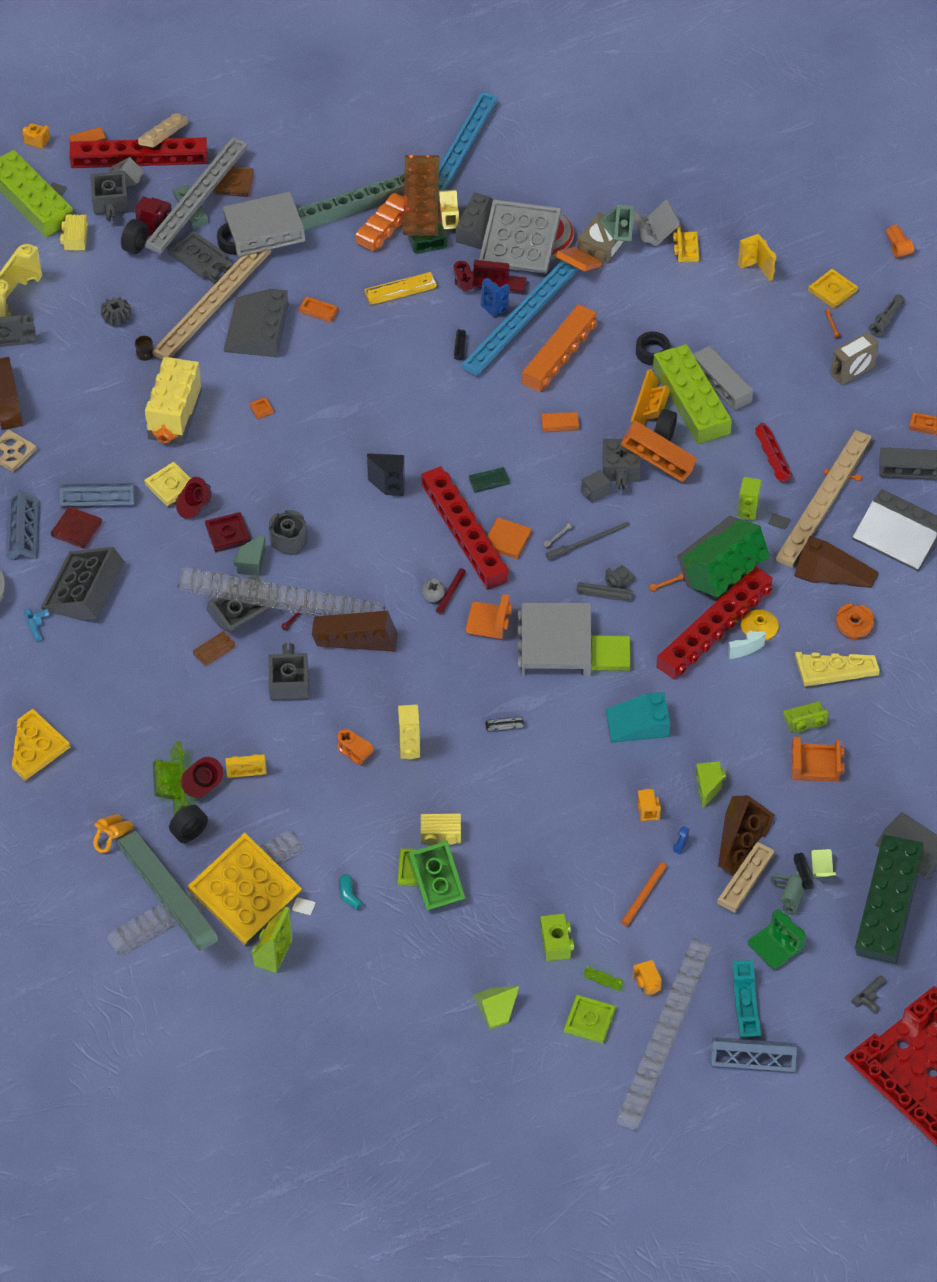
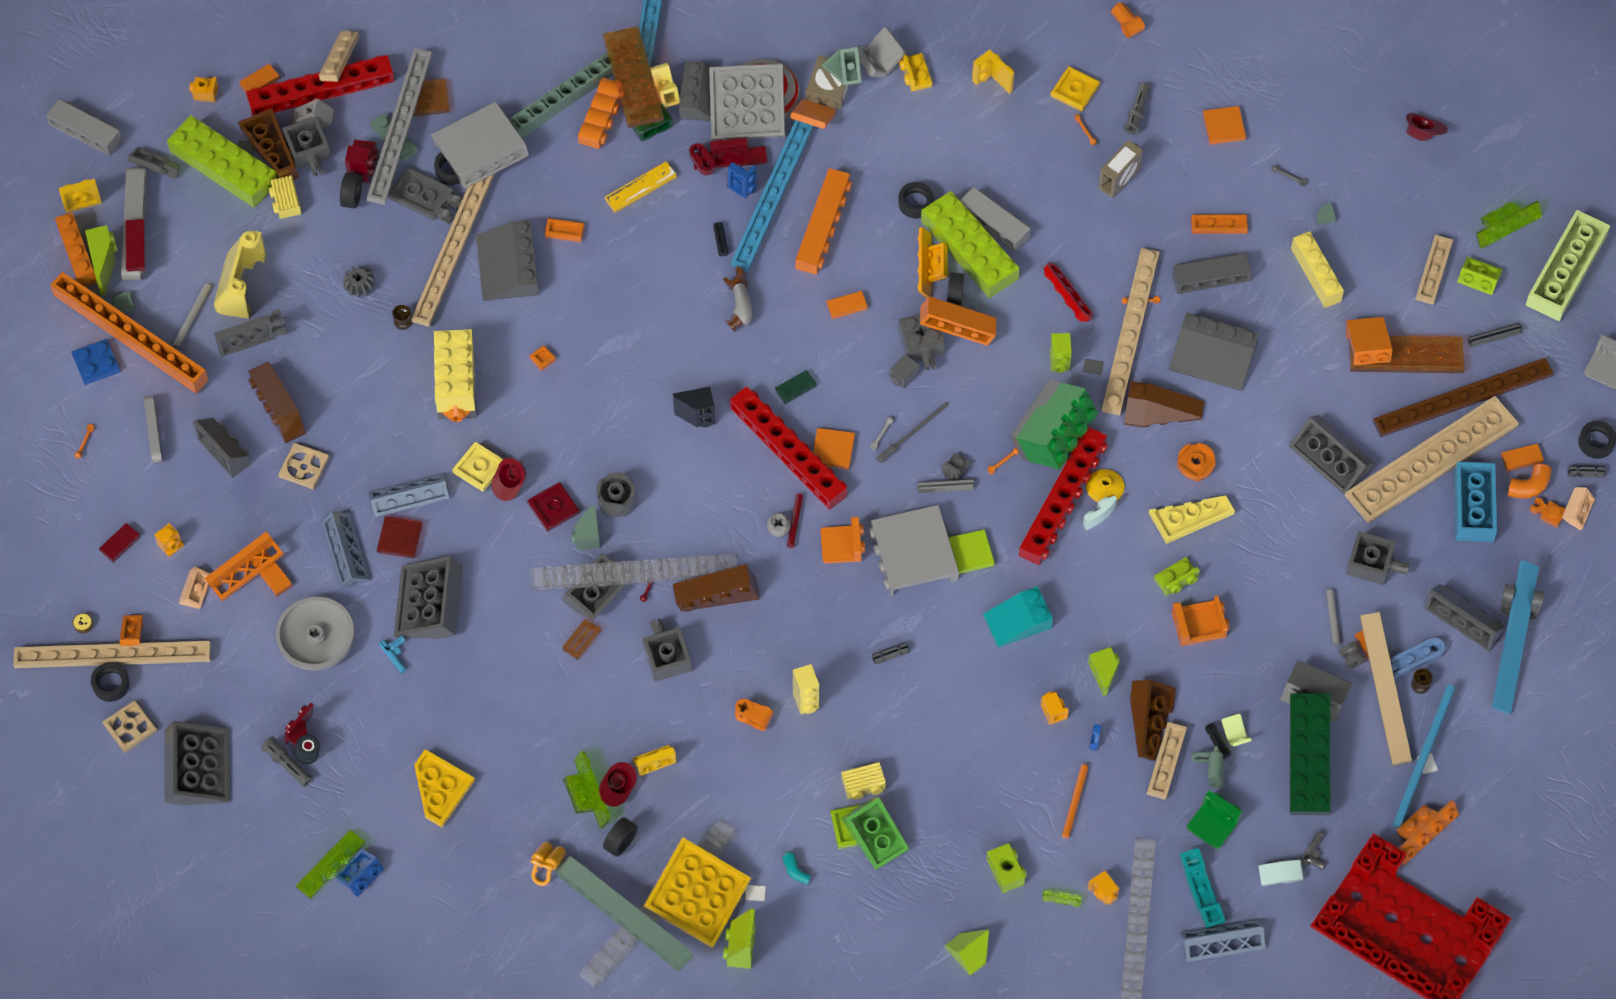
camera: 15 degrees left, 10 degrees up
(76, 185) = (267, 140): none -> reddish brown wedge
(460, 403) = (743, 309): none -> piece
(589, 1019) = (1061, 942): lime tile -> none
(831, 1003) = (1281, 872): none -> light aqua slope

